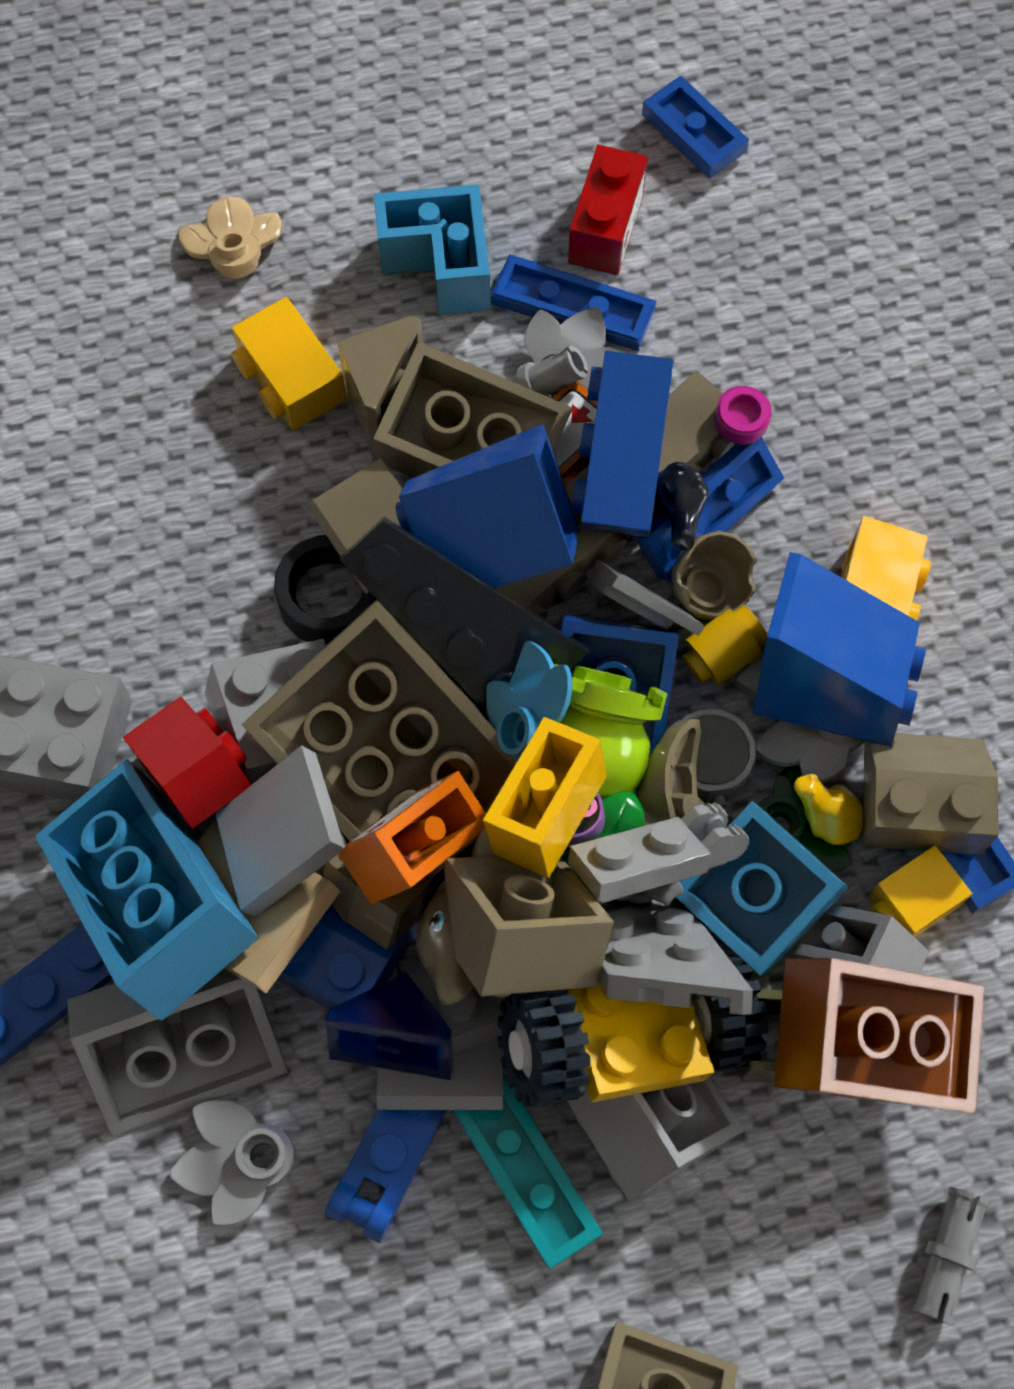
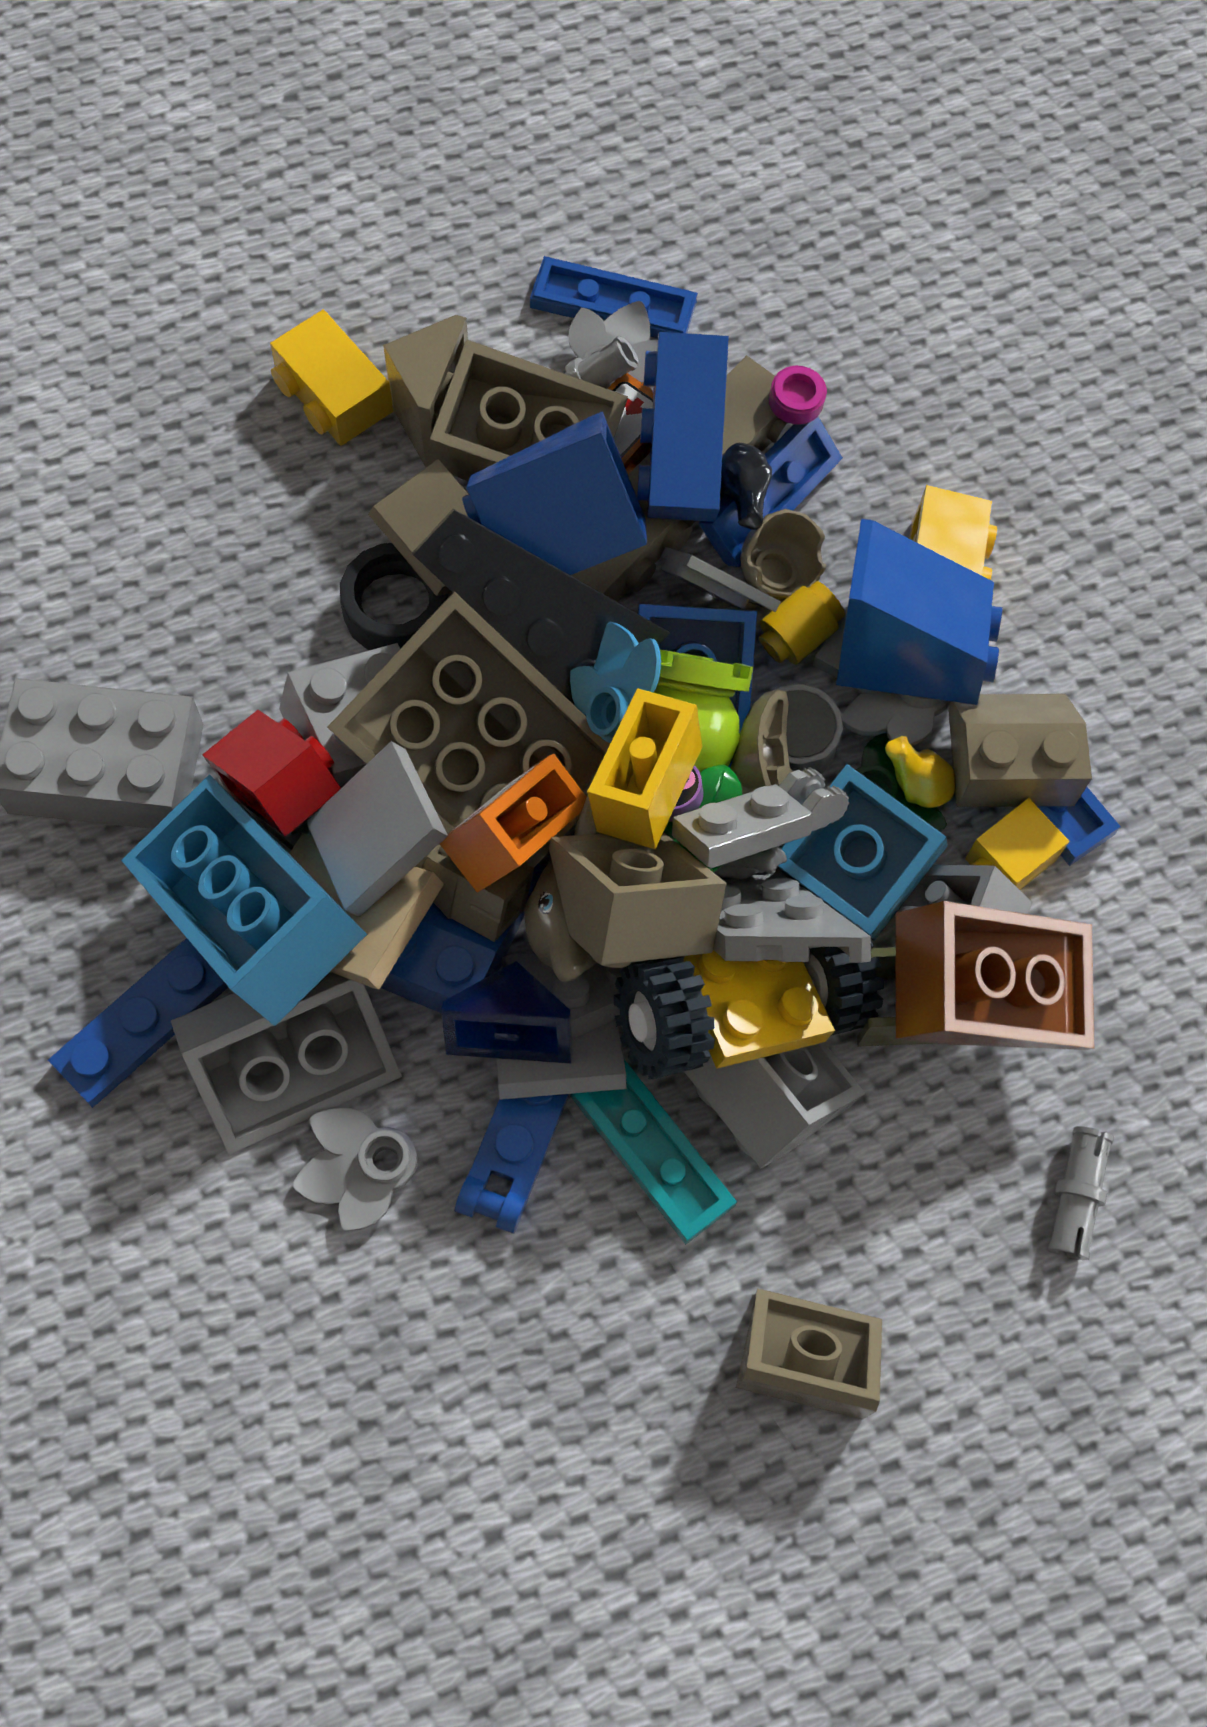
camera: 10 degrees left, 0 degrees up
(231, 236) = (257, 256): tan plate -> none
(438, 233) = (473, 238): dark azure brick -> none
(607, 209) = (639, 205): red brick -> none
(695, 126) = (719, 119): blue plate -> none

